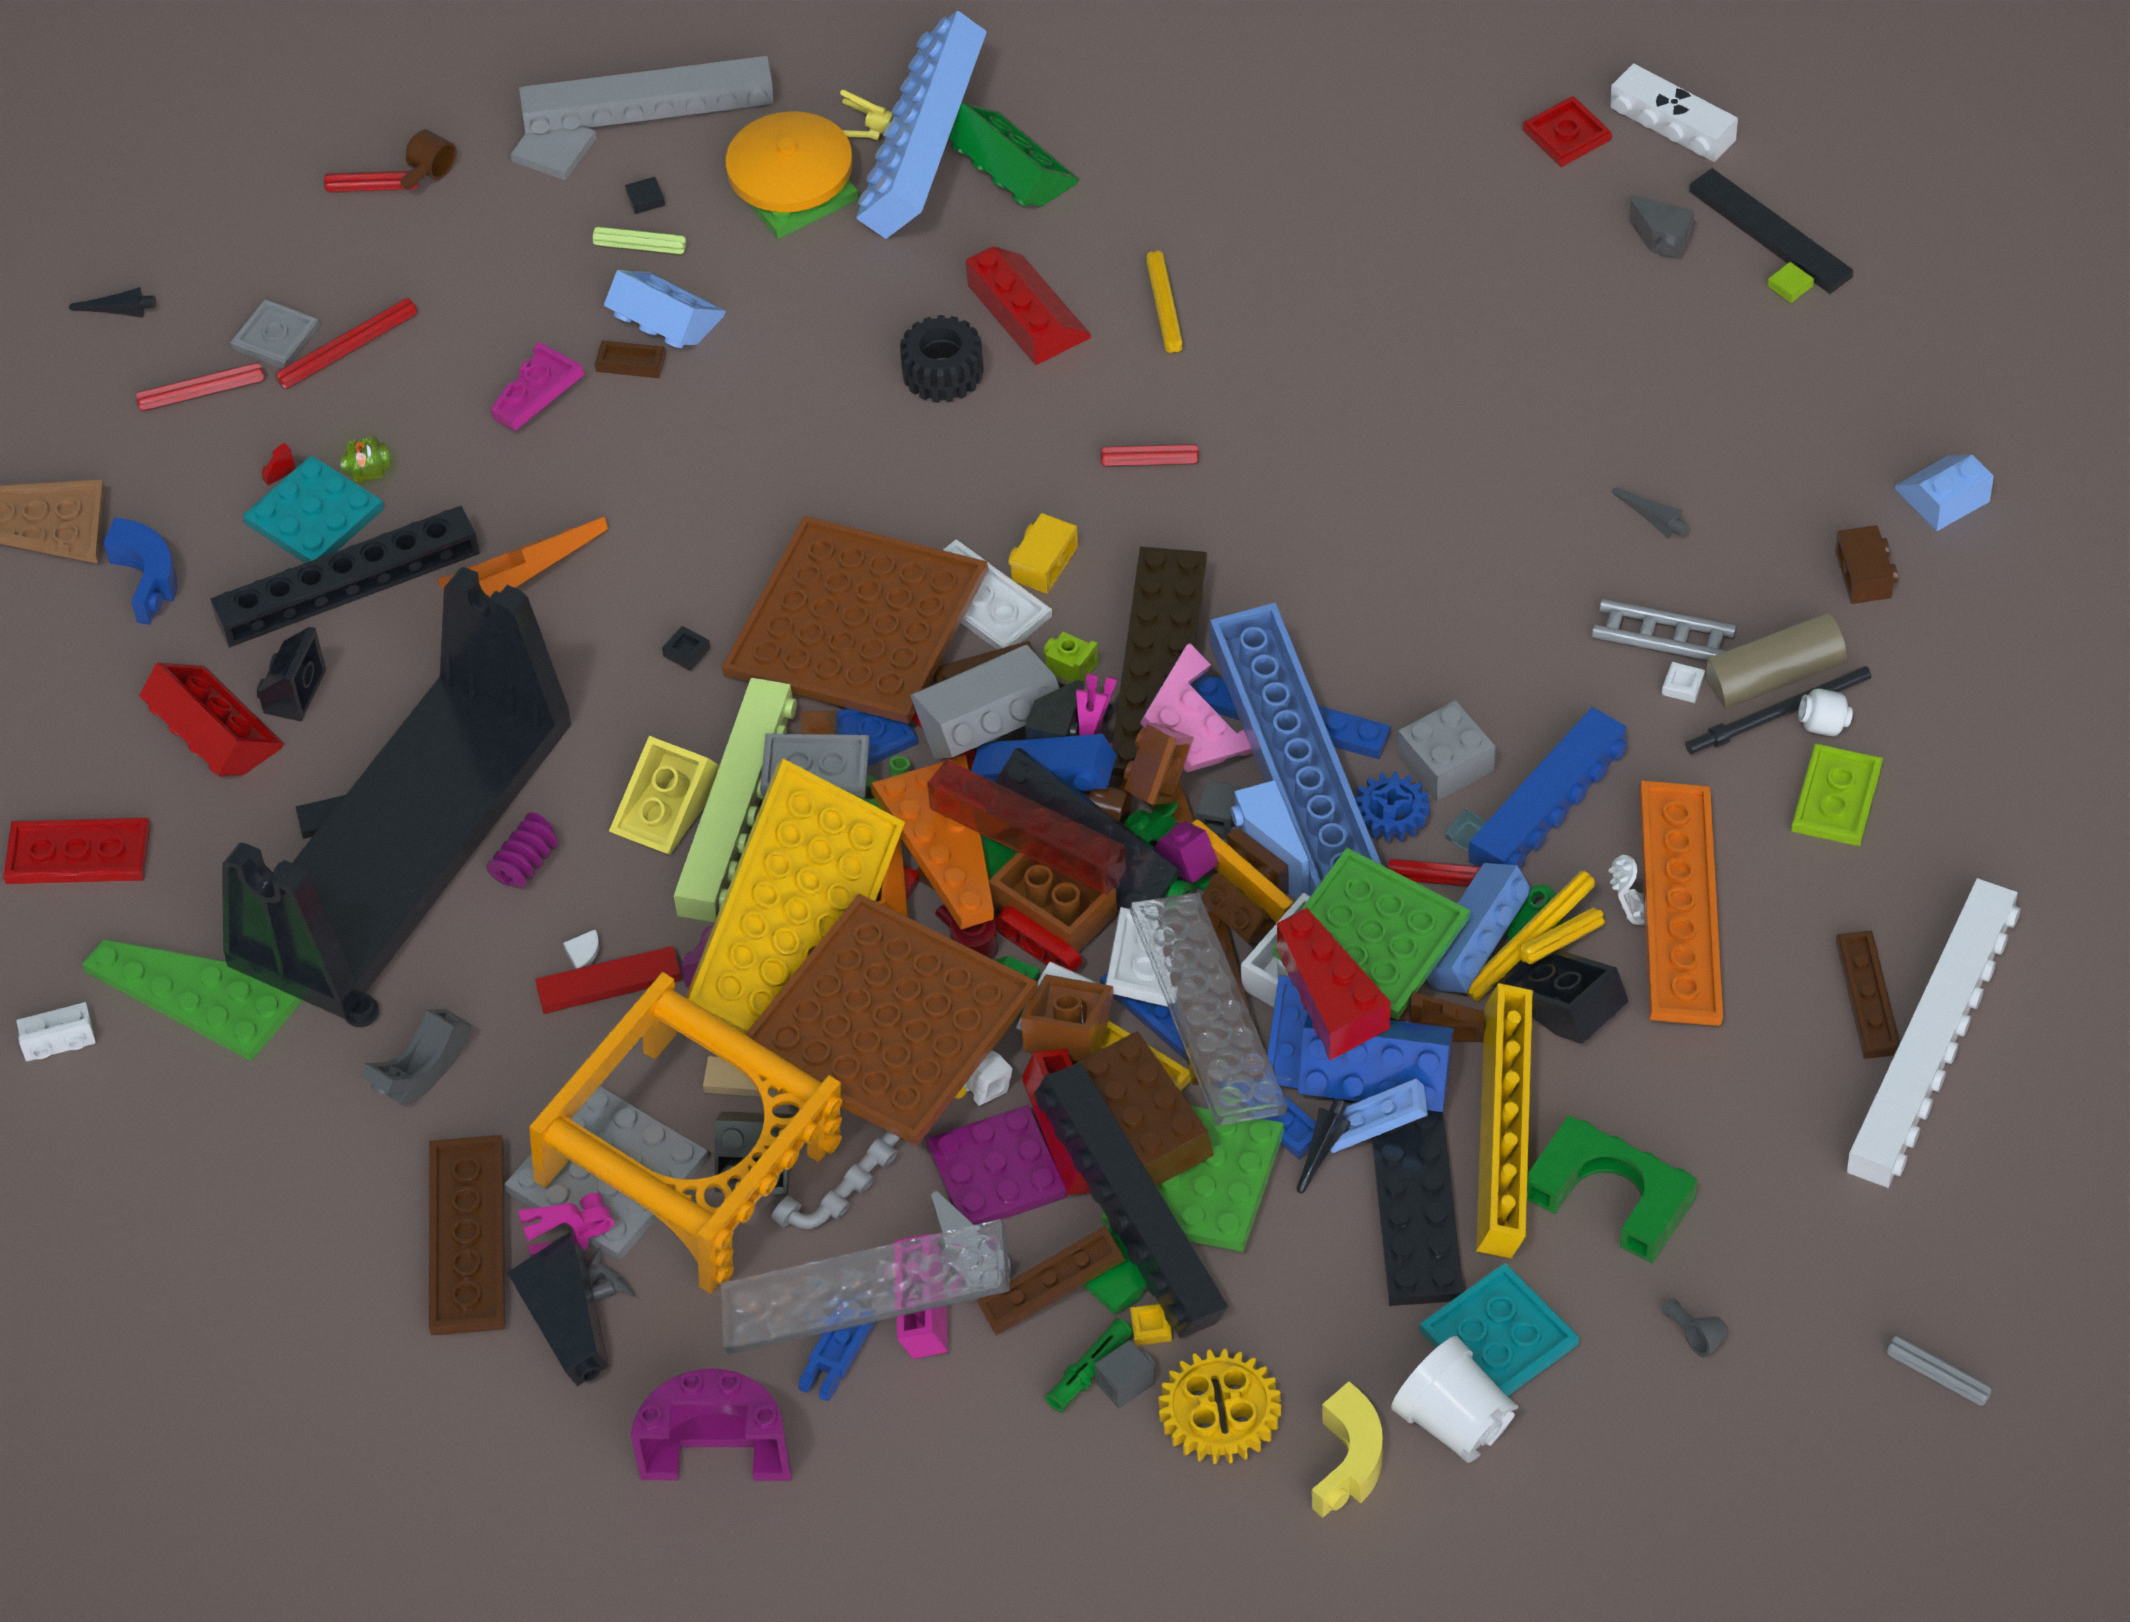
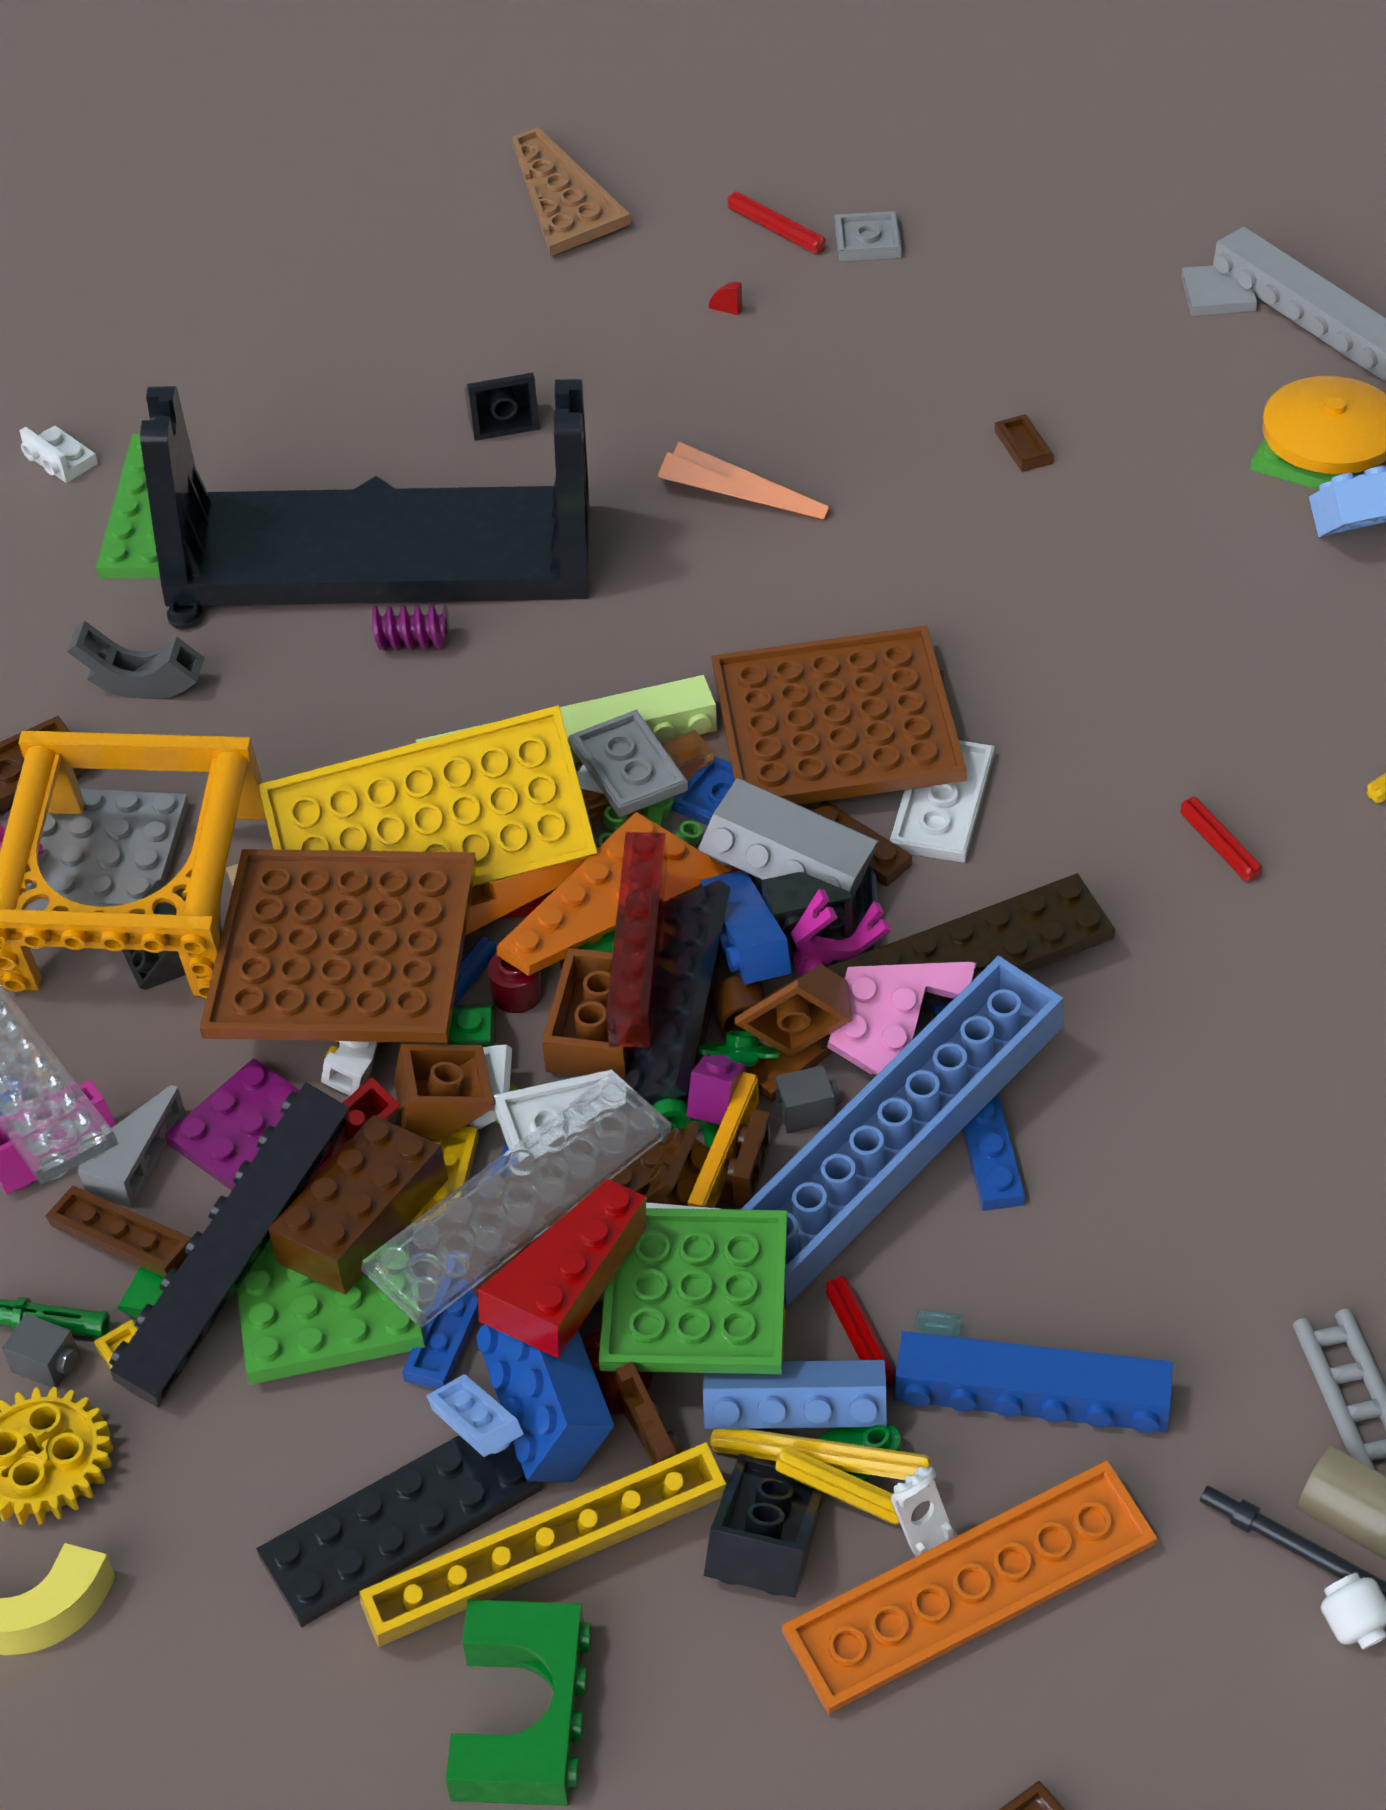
camera: 60 degrees right, 5 degrees down
(77, 850) = (251, 381): red tile -> none
(125, 303) = (826, 145): black piece -> none
(144, 549) = (563, 284): blue arch -> none
(209, 718) = (430, 383): red slope -> none
(313, 511) = (697, 342): teal plate -> none
(345, 576) = (640, 388): black brick -> none
(346, 343) = (892, 276): red axle -> none
(365, 181) = (1077, 209): red axle -> none
(366, 459) = (769, 339): clear neon green head -> none
(428, 156) = (1129, 222): reddish brown piece -> none
(536, 386) = (947, 401): dark pink wing -> none
(582, 949) = (334, 718): white tile -> none
(606, 979) = (298, 738): red tile -> none
(639, 240) = (1161, 385): yellowish green axle -> none
(645, 195) = (1216, 365): black tile -> none
(662, 307) = (1095, 430): light blue slope -> none
(664, 795) = (542, 679): light yellow slope -> none
(686, 648) = (719, 625): black plate -> none
(835, 1202) = (140, 1024): light grey bar -> none
(944, 377) = (1196, 631): black tyre -> none
(1024, 304) = (1324, 659): red slope -> none
(1036, 939) = (533, 1058): red beam -> none
(1043, 553) = (1026, 814): yellow brick -> none
(1071, 657) = (913, 886): lime brick -> none
(1265, 818) = (787, 1127): light blue slope -> none
(1327, 1131) = (436, 1383): black piece -> none
(1393, 806) = (912, 1243): blue gear -> none
(1446, 750) = (1021, 1258): light grey brick -> none
(1455, 1400) = (121, 1669): white piece -> none
(1504, 1327) = (258, 1681): teal plate -> none
(1683, 682) = (1297, 1445): white tile -> none
(1837, 794) = (1254, 1686): lime tile -> none

